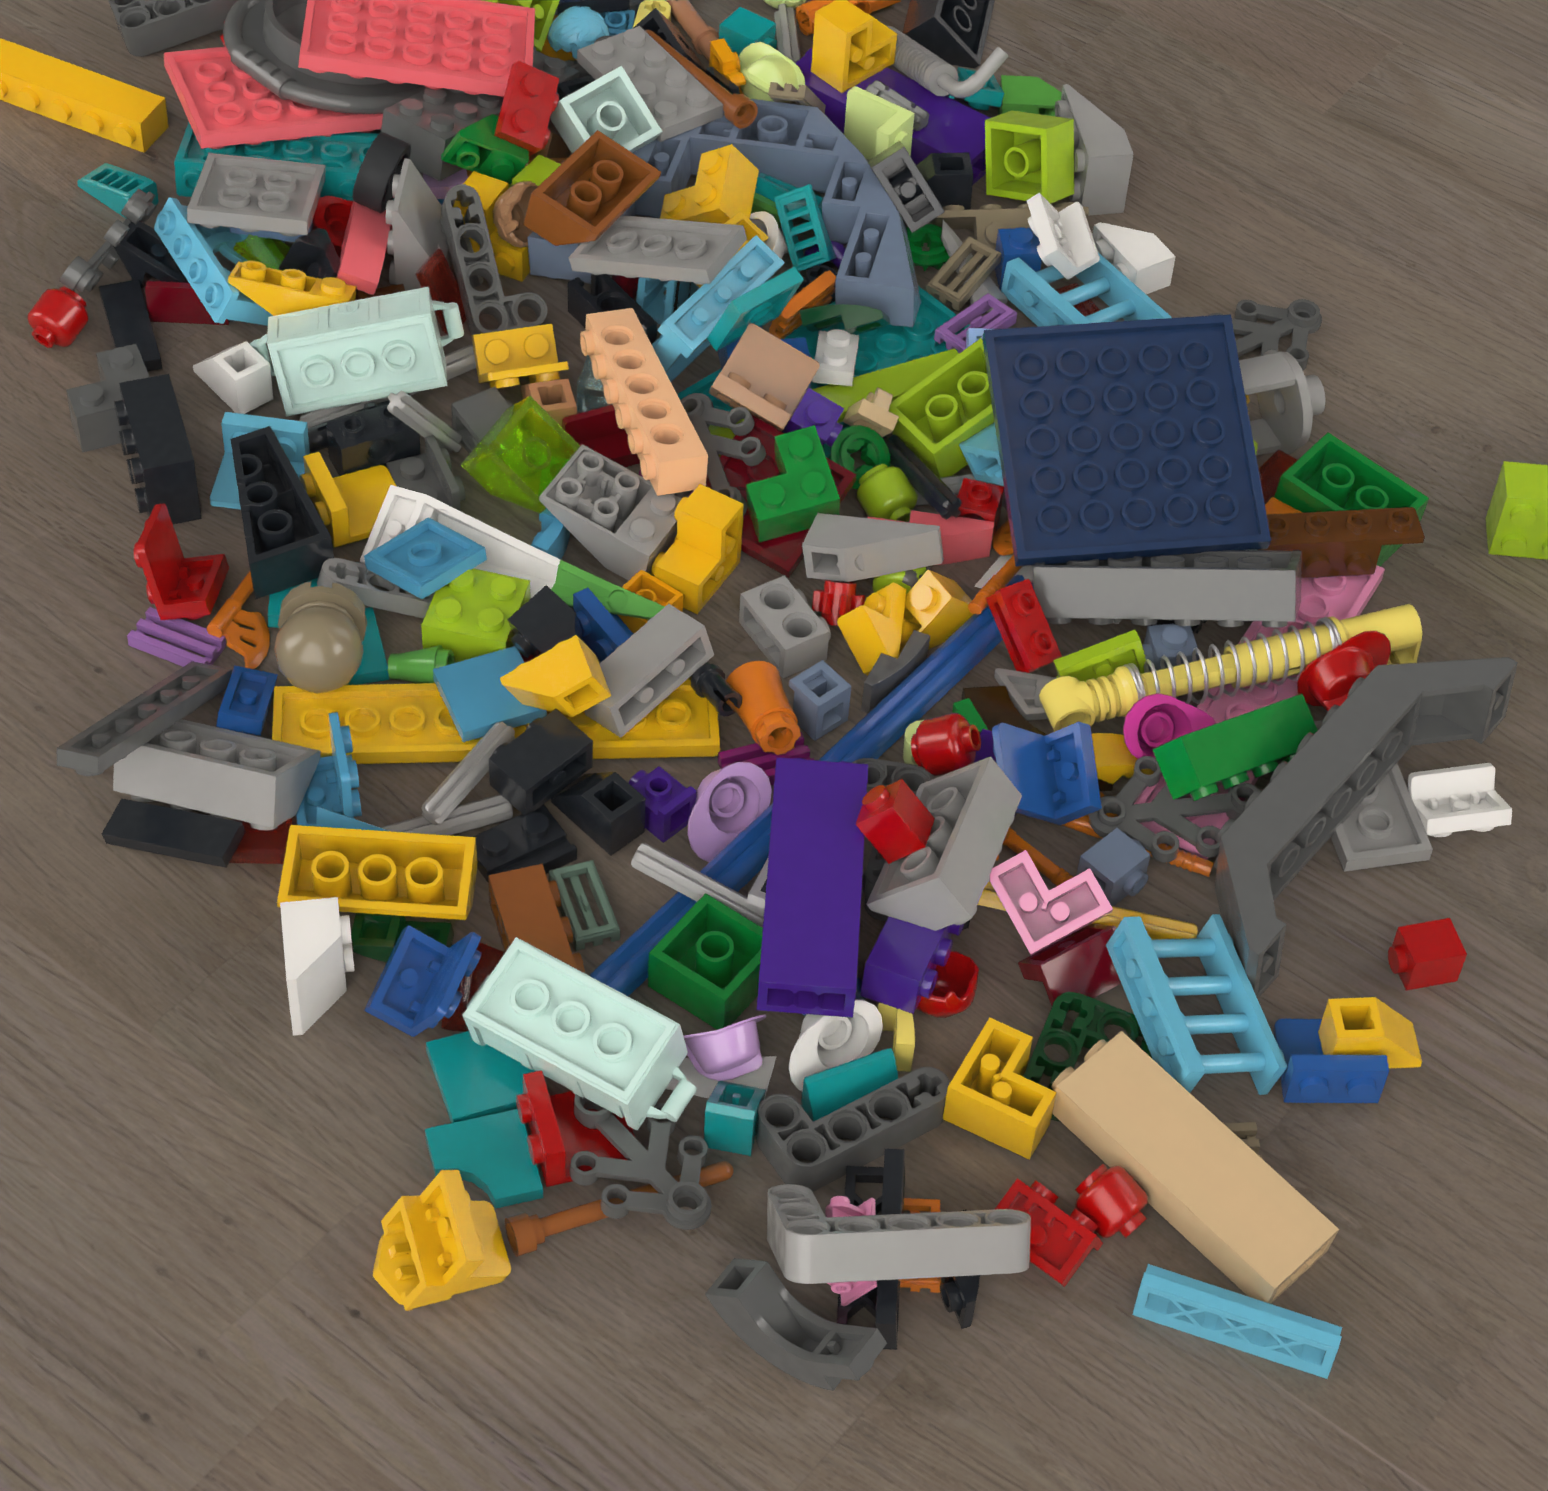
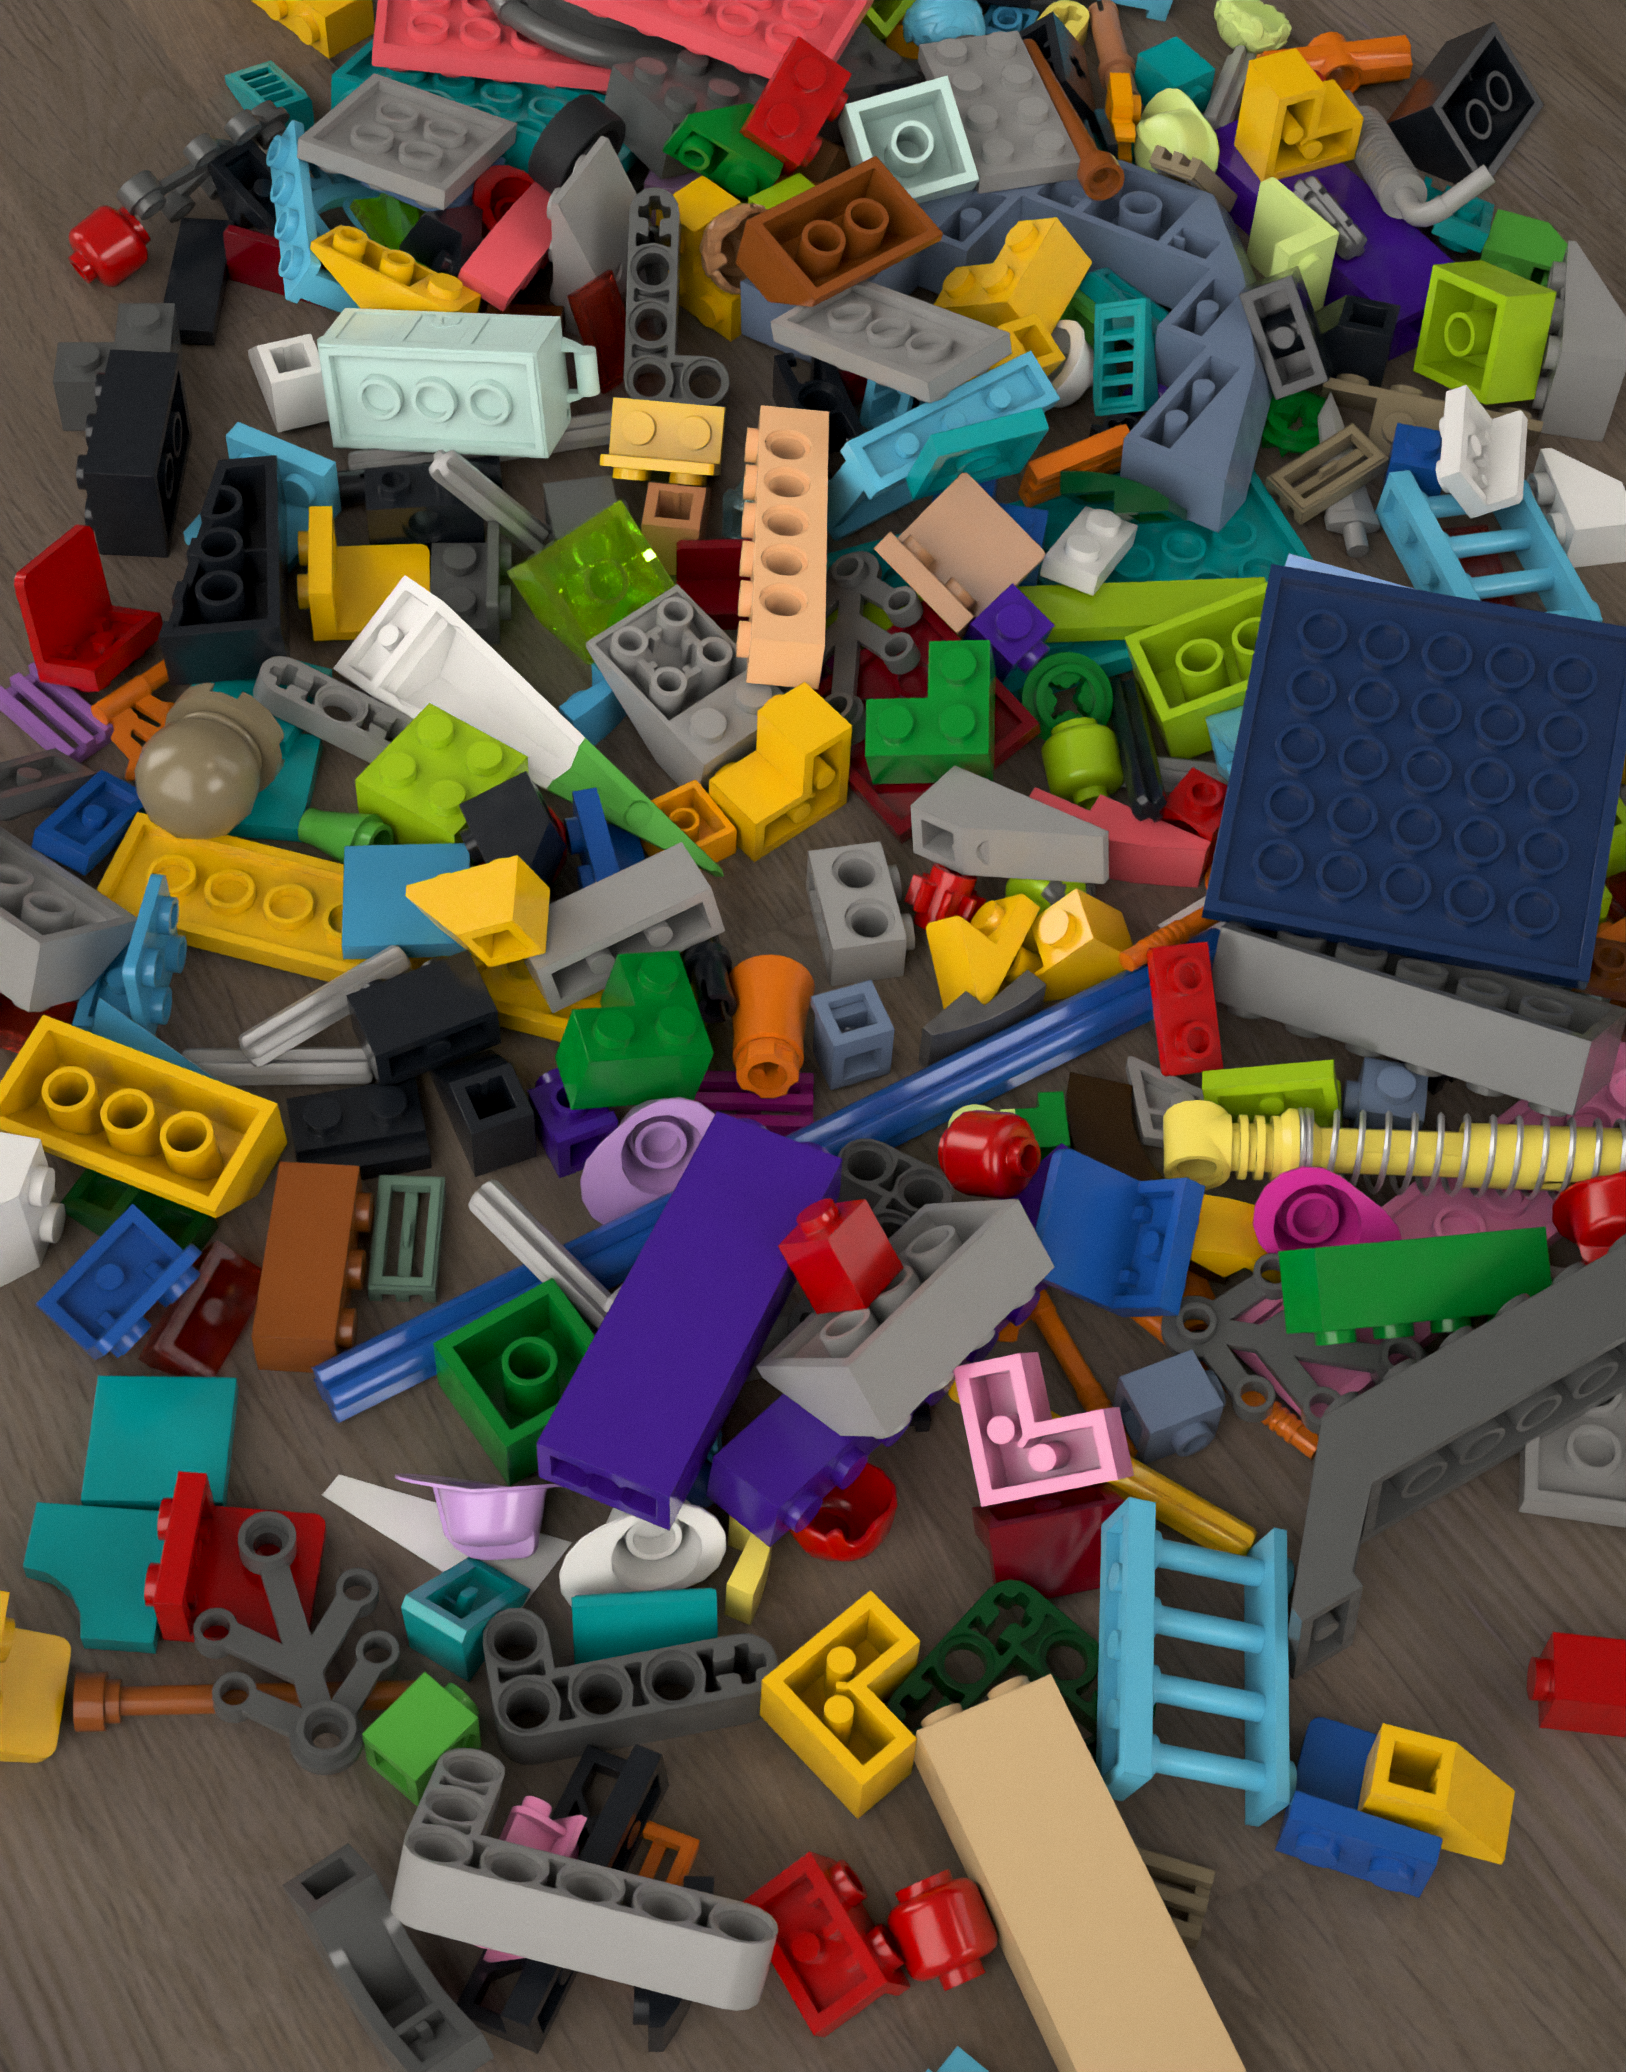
camera: 20 degrees right, 5 degrees up
(425, 558) = (401, 688): dark azure tile -> none
(581, 1034) = (276, 1444): light aqua container -> none
(689, 733) = (640, 1041): none -> green brick
(742, 1191) = (417, 1731): none -> bright green brick
(873, 413) = (1104, 641): tan tile -> none
(999, 318) = (1343, 552): medium lavender tile -> none

